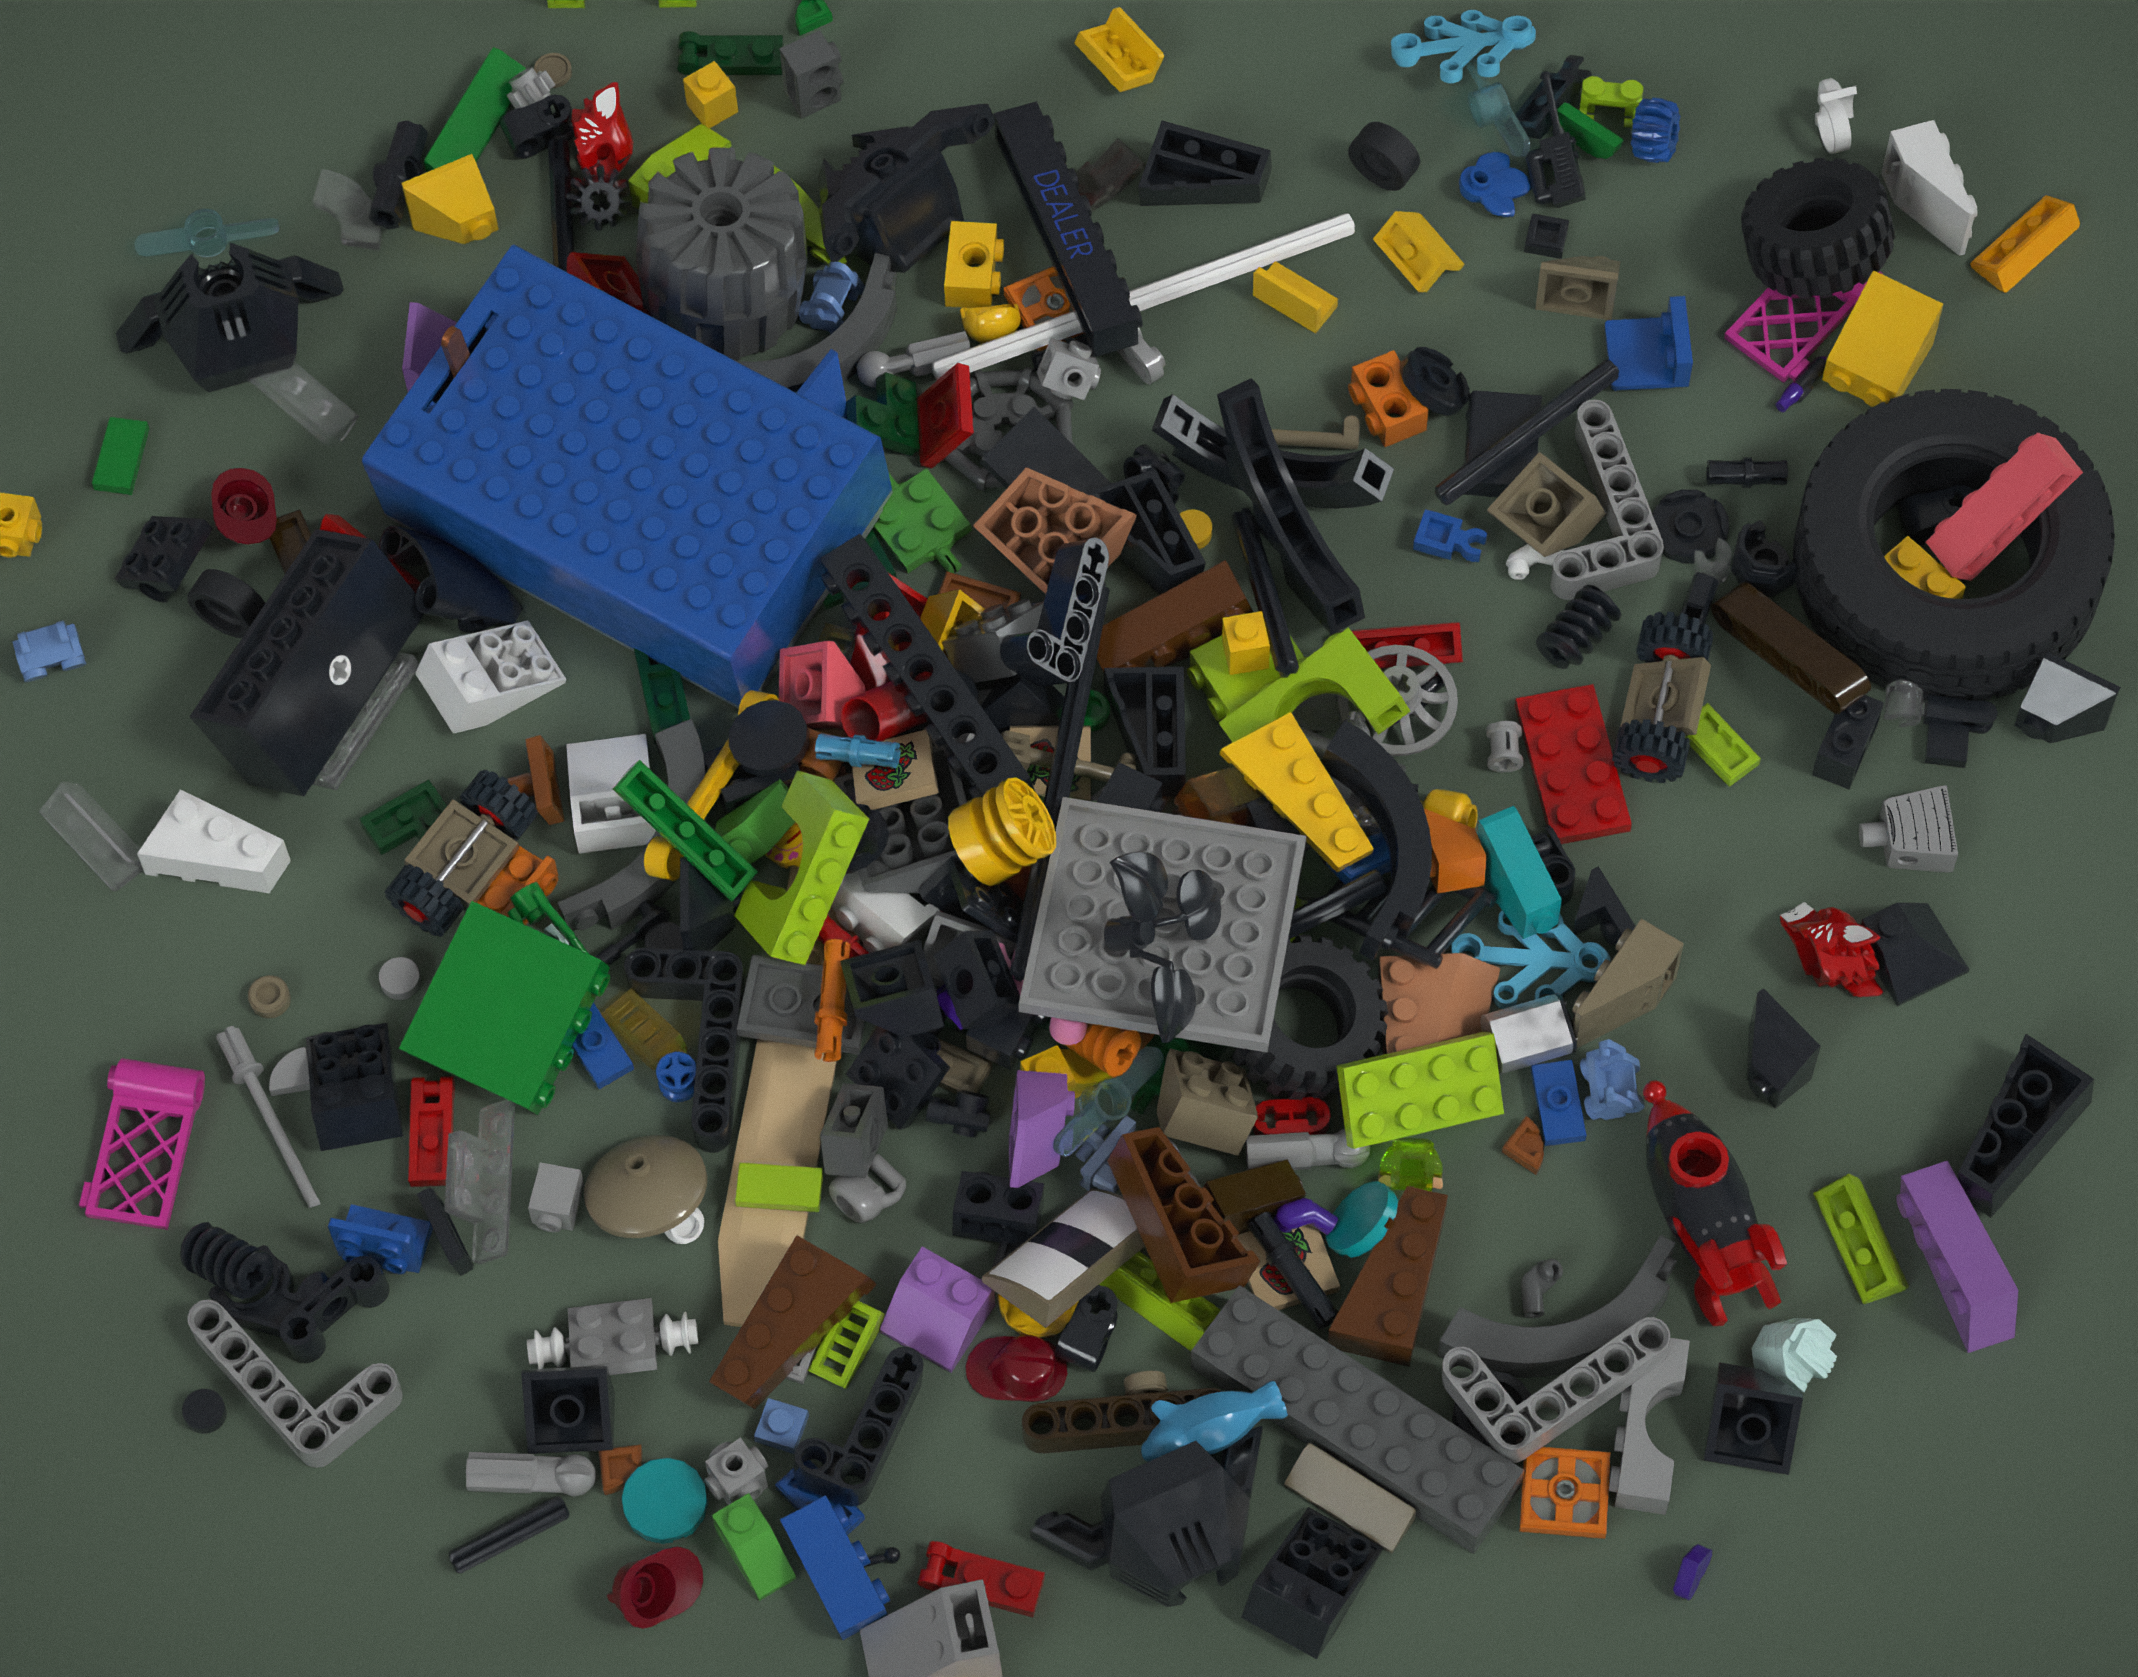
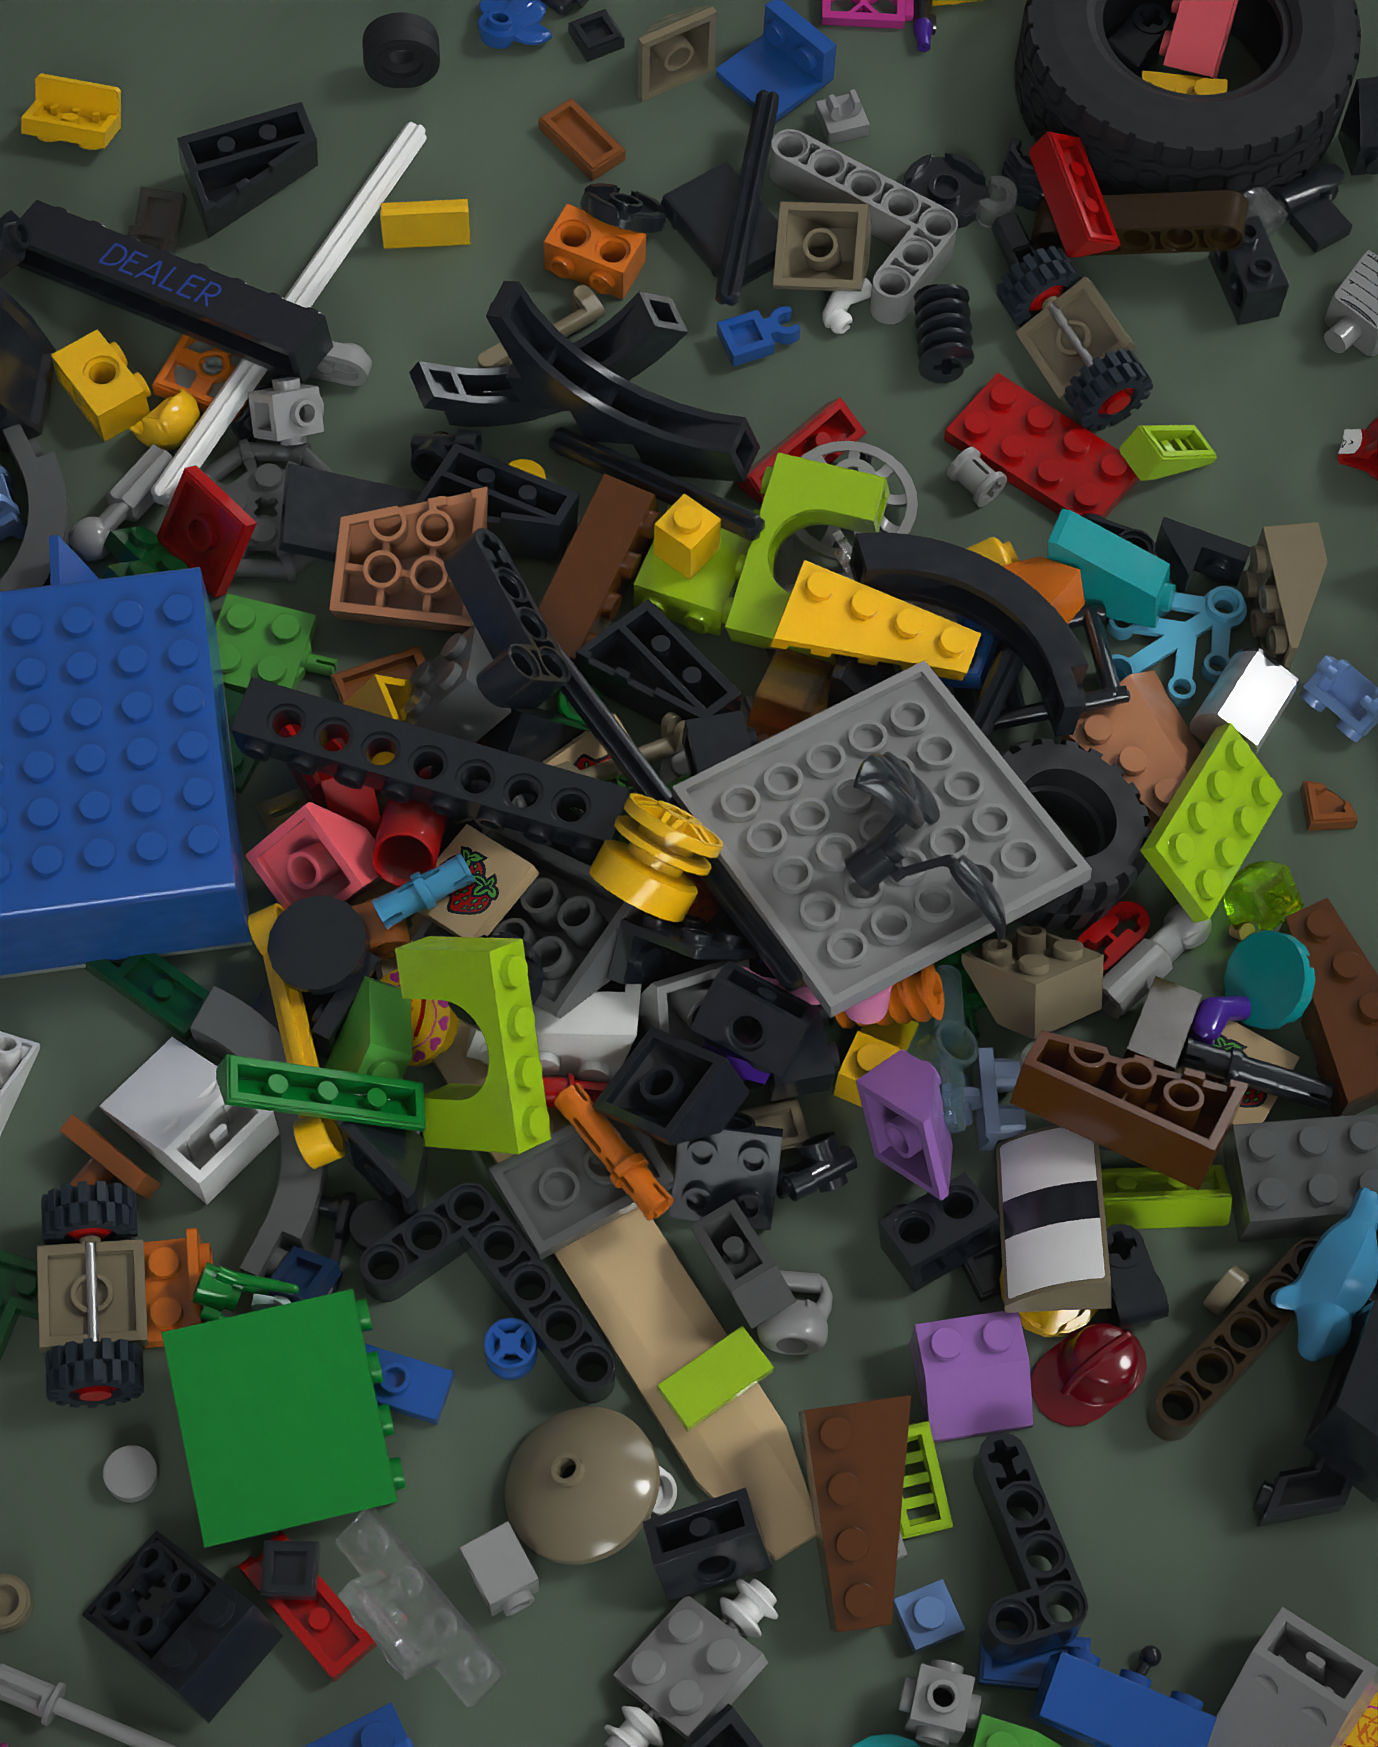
camera: 45 degrees left, 0 degrees up
(290, 1073) = (101, 1665): light grey tile -> none
(436, 1100) = (290, 1570): none -> black tile
(445, 1231) = (417, 1698): black tile -> none
(593, 937) = (309, 1271): none -> dark blue plate
(663, 1043) = (457, 1313): clear yellow slope -> none
(683, 1275) = (707, 1544): none -> black brick
(1006, 1584) = (1253, 1604): red plate -> none
(1416, 249) = (497, 116): yellow panel -> none
(1462, 308) = (581, 139): none -> dark orange tile
(1558, 1103) = (1315, 749): blue plate -> none
(1634, 820) = (1161, 452): none -> lime slope
(1666, 420) = (842, 117): none -> light grey tile
(1722, 747) = (1162, 351): lime plate -> none
(1747, 472) = (950, 115): black pin -> none
(1754, 593) = (1073, 195): none -> red slope

